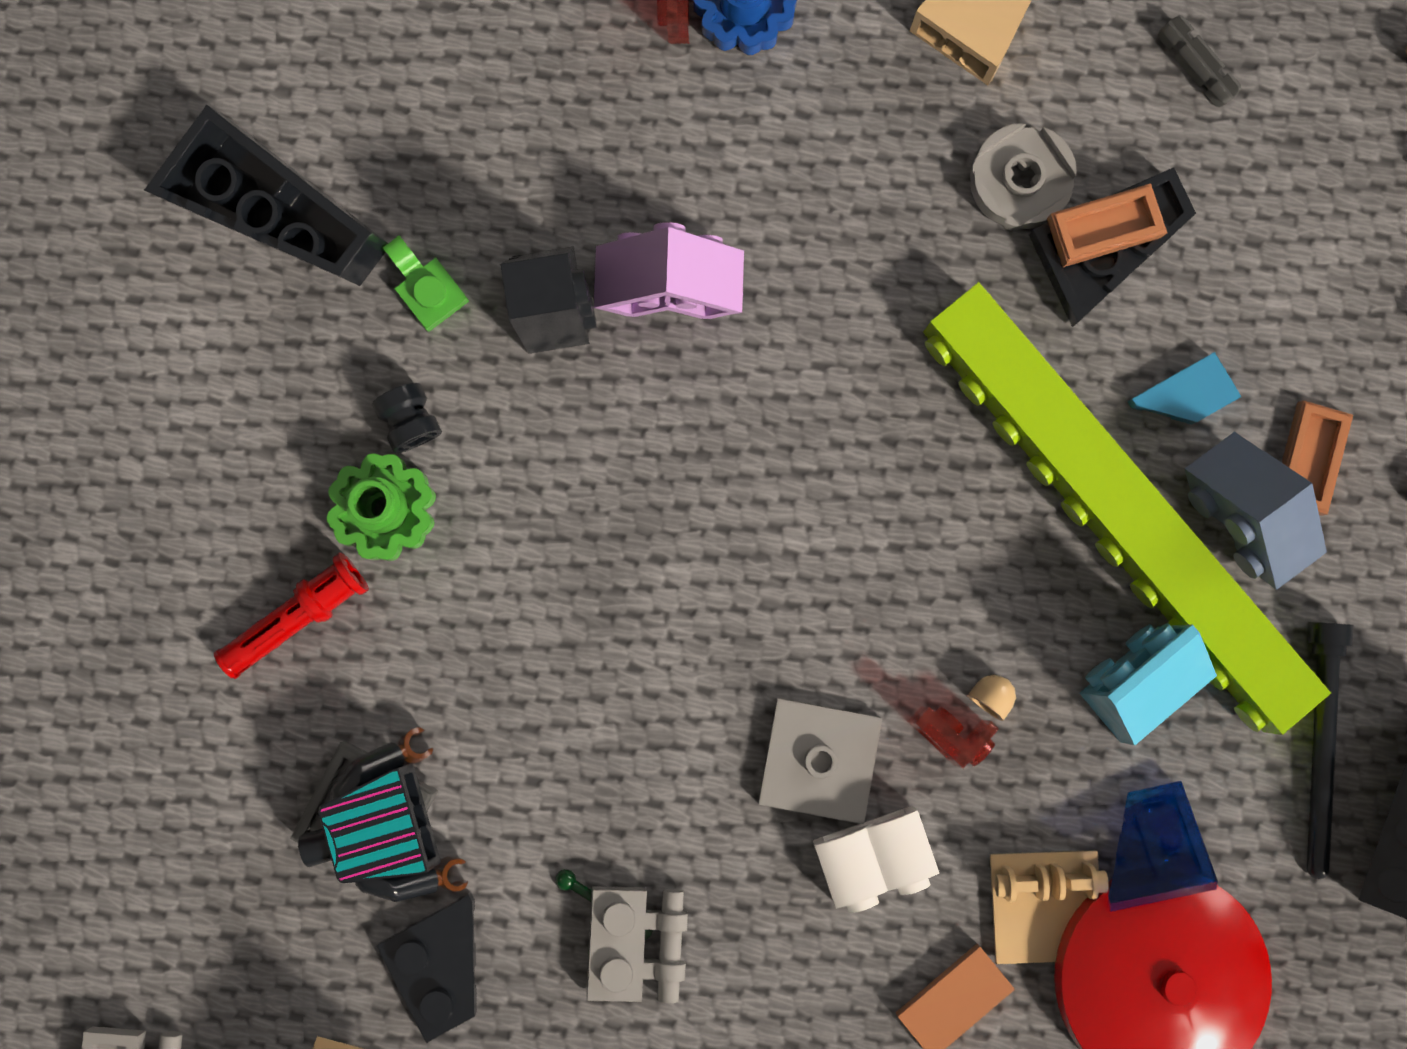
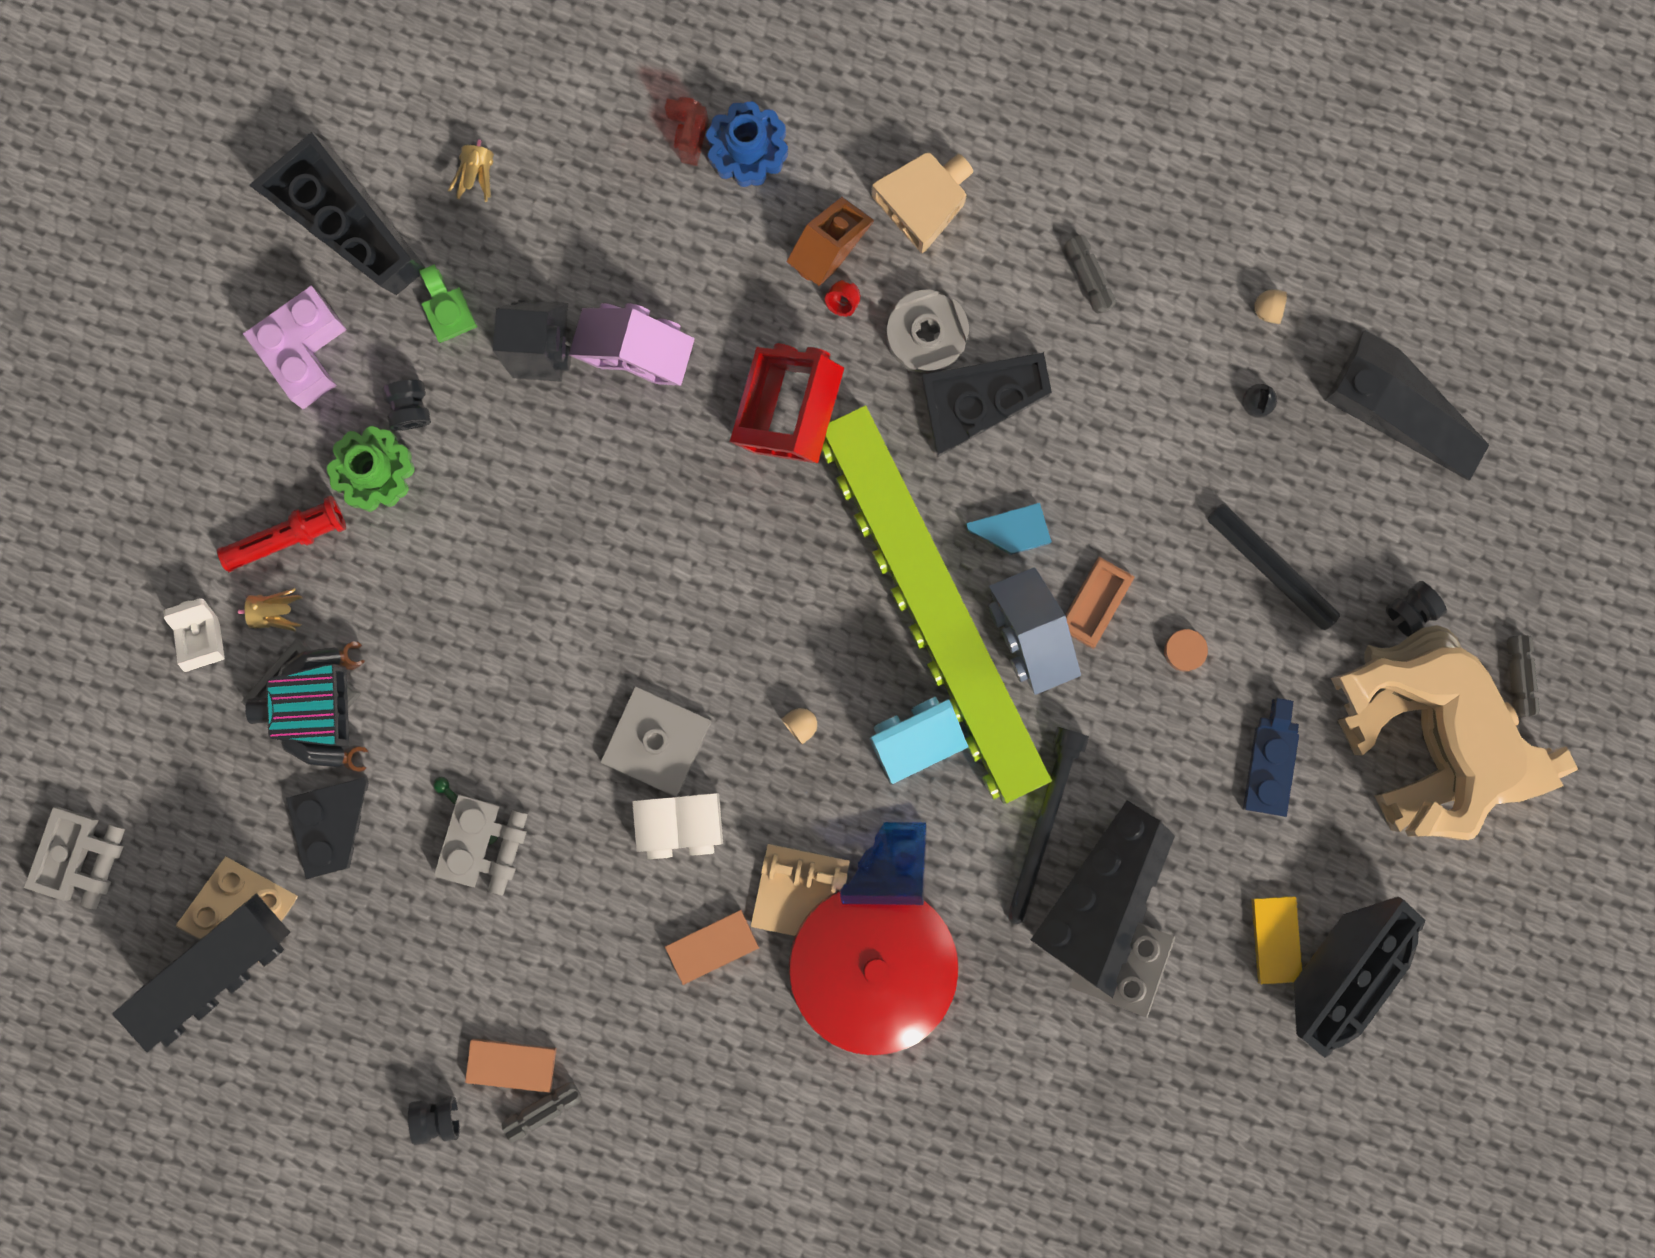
camera: 15 degrees right, 0 degrees up
(212, 768) = (195, 634): none -> white bracket
(241, 374) = (288, 342): none -> lavender brick
(298, 715) = (266, 610): none -> pearl gold piece
(418, 102) = (474, 160): none -> pearl gold piece
(841, 302) = (762, 393): none -> red window
(875, 95) = (828, 240): none -> dark orange slope
(898, 154) = (835, 294): none -> red hinge
(943, 733) = (754, 741): clear red bracket -> none
(1106, 225) = (977, 385): nougat tile -> none

